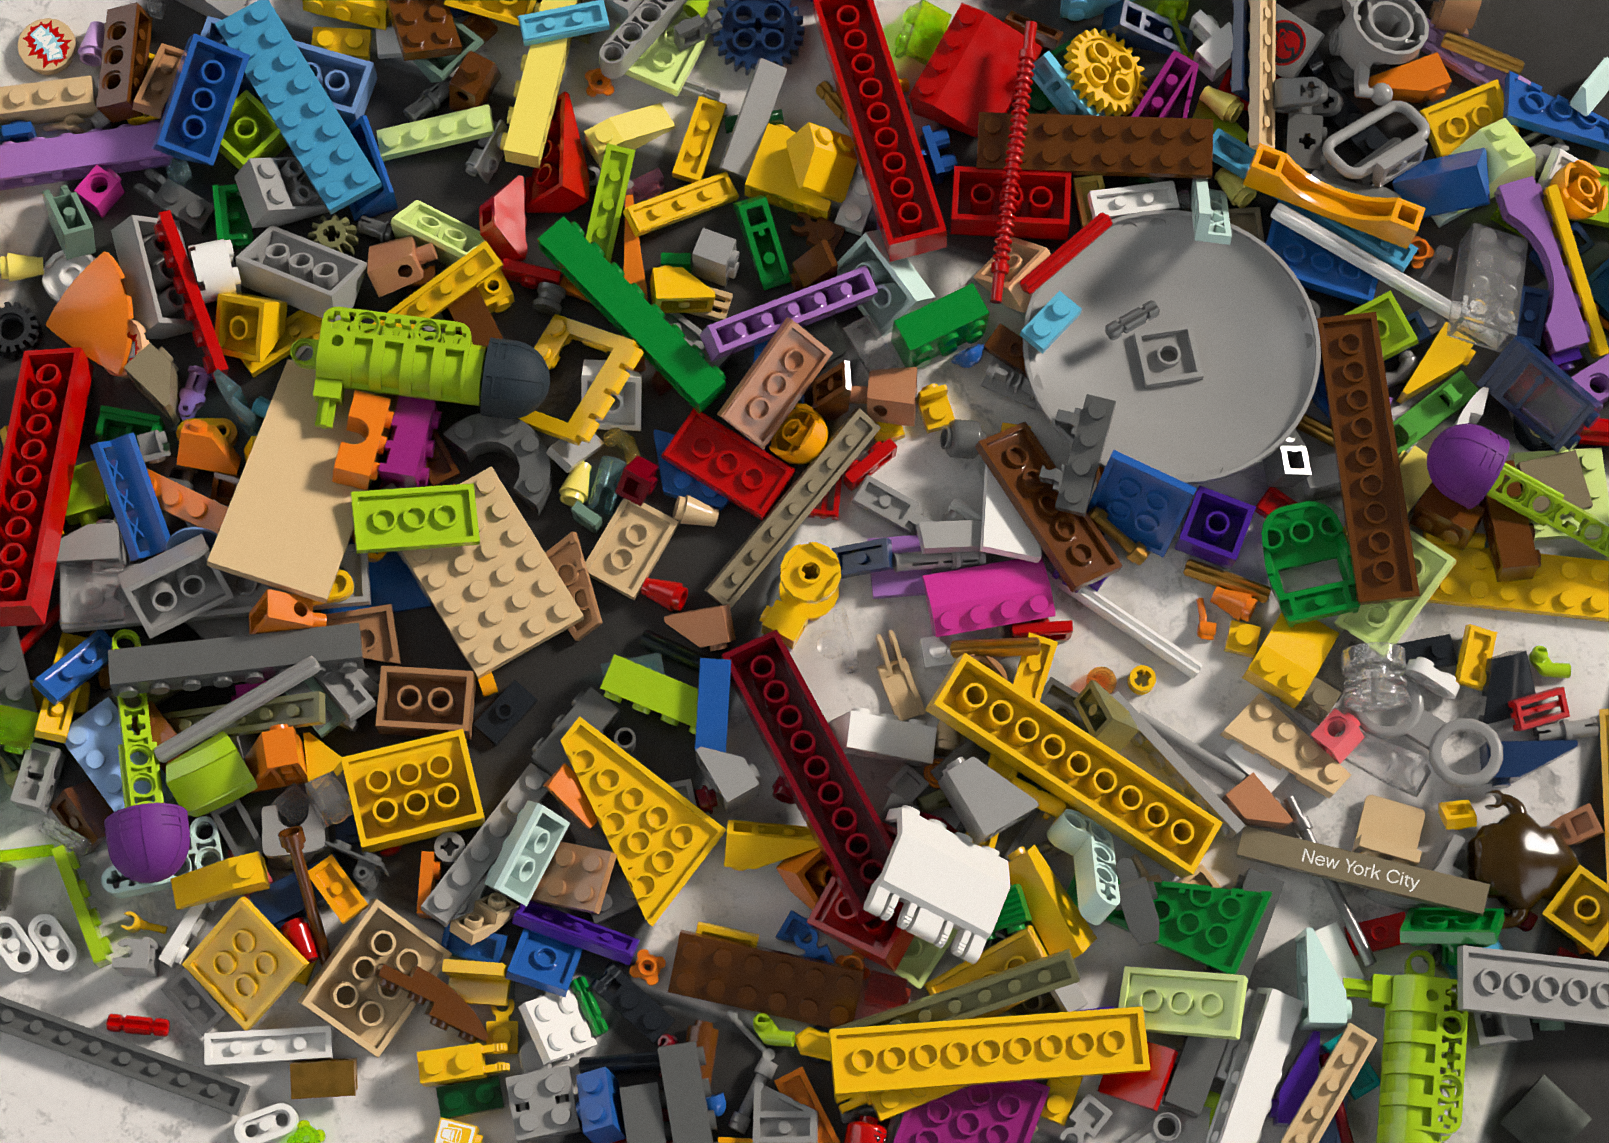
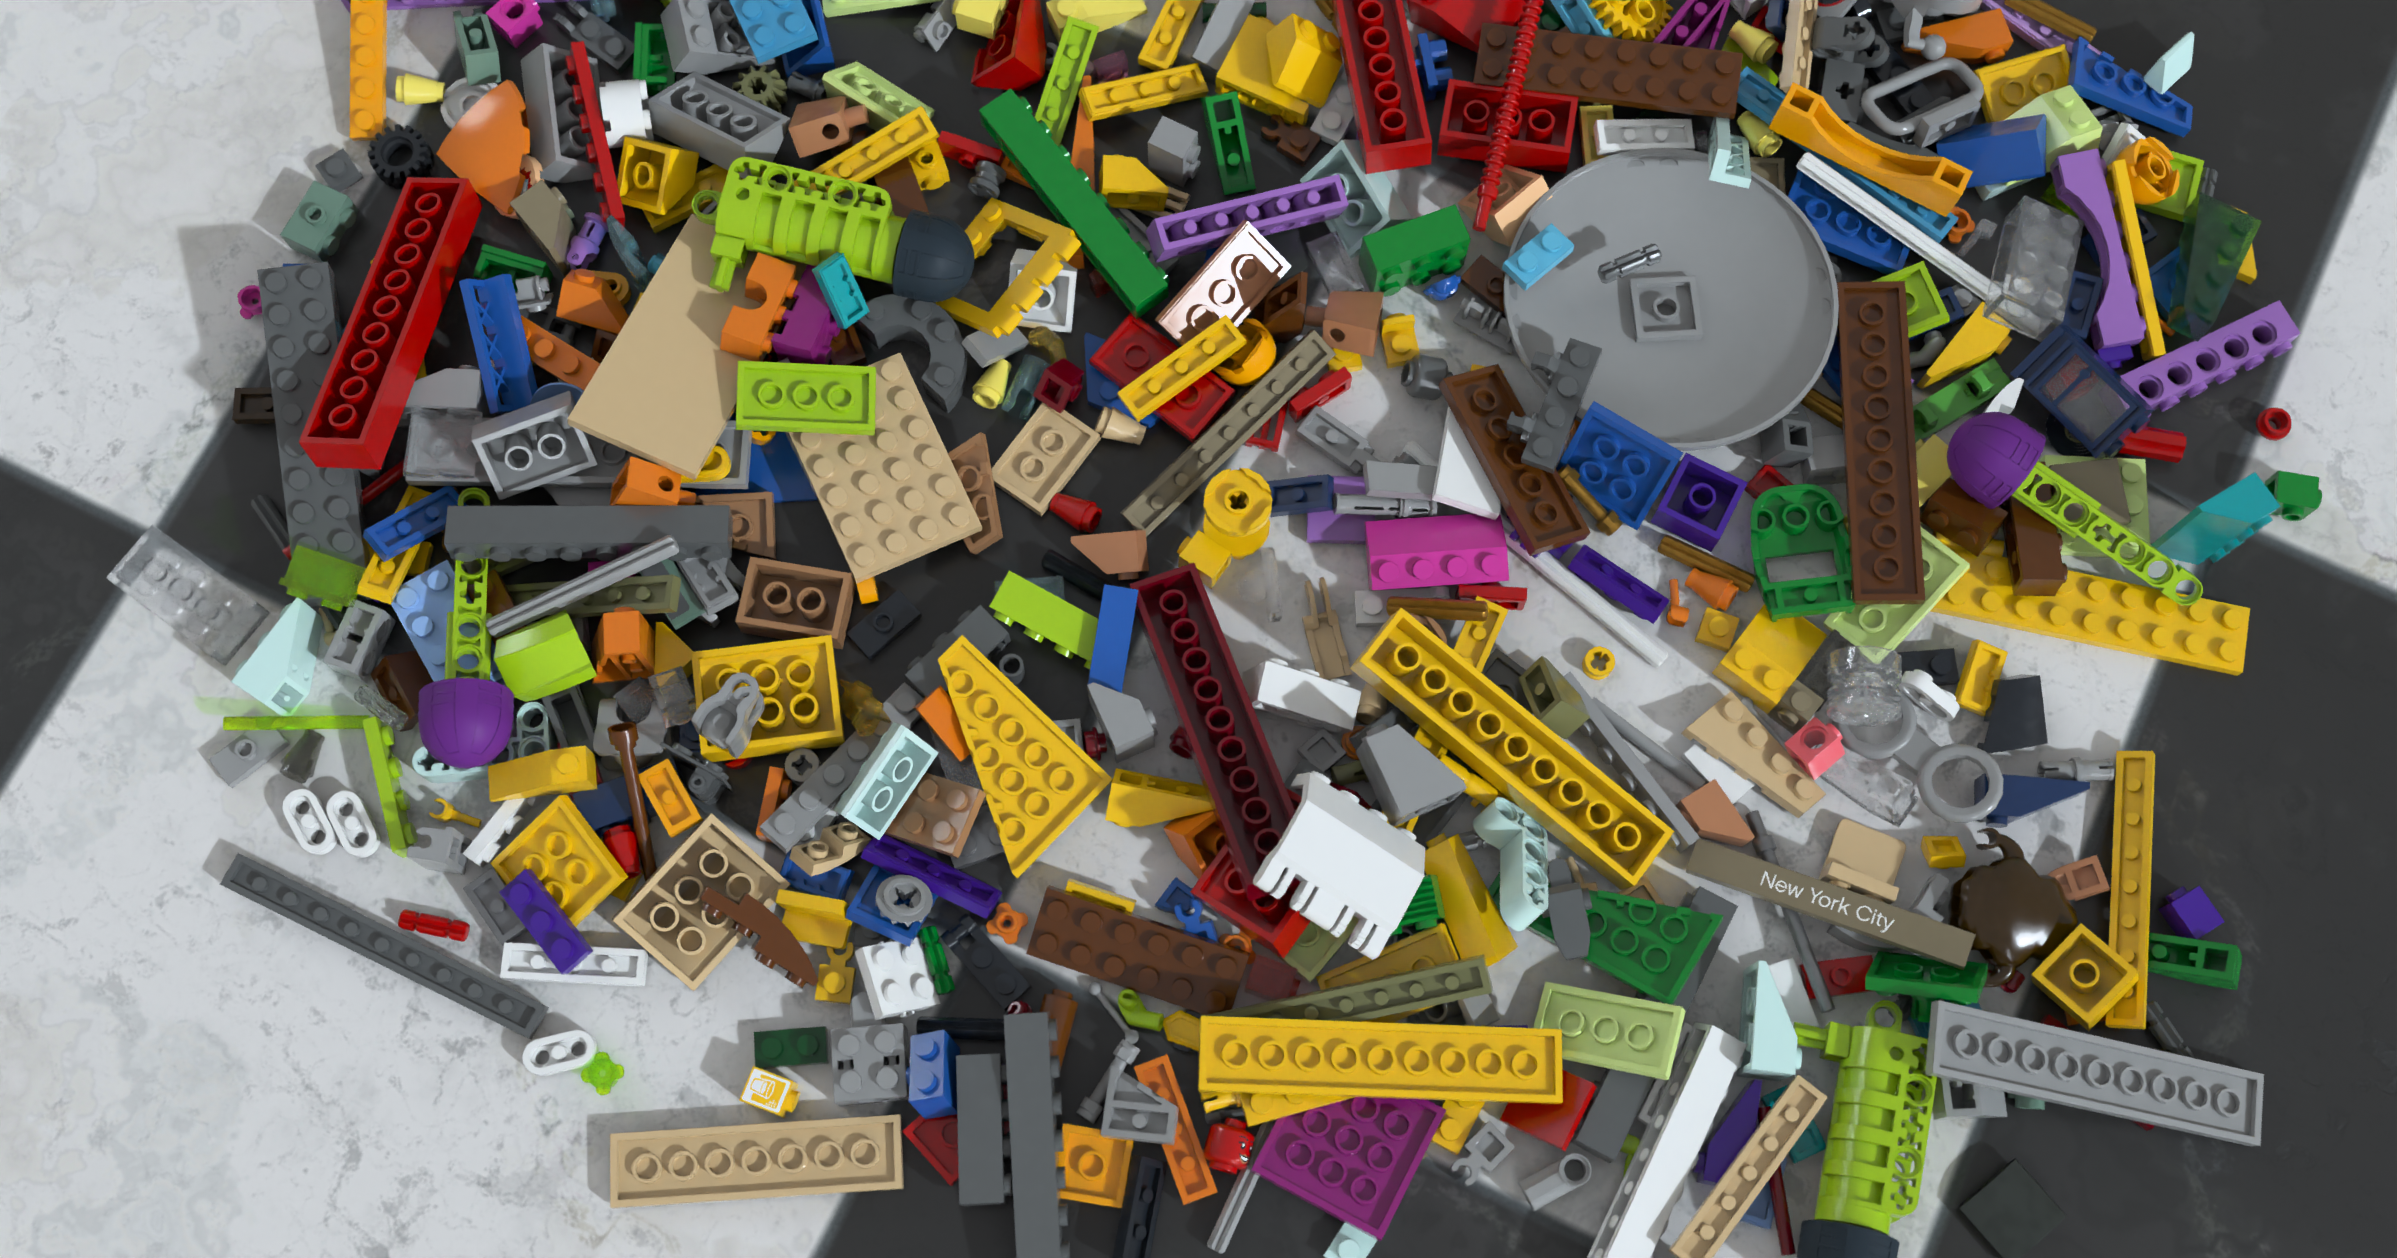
camera: 10 degrees right, 0 degrees up
(87, 496) = (451, 340): lime torso -> none
(240, 1010) = (546, 921): none -> dark purple plate
(323, 1078) = (630, 1007): pearl gold hinge -> none
(384, 815) = (728, 719): none -> light grey piece
(434, 417) = (840, 290): none -> teal plate
(459, 1064) = (781, 1008): yellow hinge -> none
(497, 790) = (862, 707): none -> clear yellow hinge
(504, 221) = (948, 91): slope -> none
(556, 945) = (904, 887): none -> light grey gear
(586, 517) = (999, 420): sand green tile -> none
(677, 260) = (1132, 150): green plate -> none
(717, 1103) = (1066, 1085): blue hinge -> none
(746, 455) = (1182, 368): none -> yellow plate
(814, 267) = (1282, 170): reddish brown slope -> none
(1066, 253) = (1562, 184): red axle -> none
(1103, 677) = (1556, 655): clear orange plate -> none
(1152, 607) = (1618, 584): none -> dark purple plate
(1518, 713) = (2025, 745): red tile -> none
(1545, 667) = (2058, 696): lime arm -> none

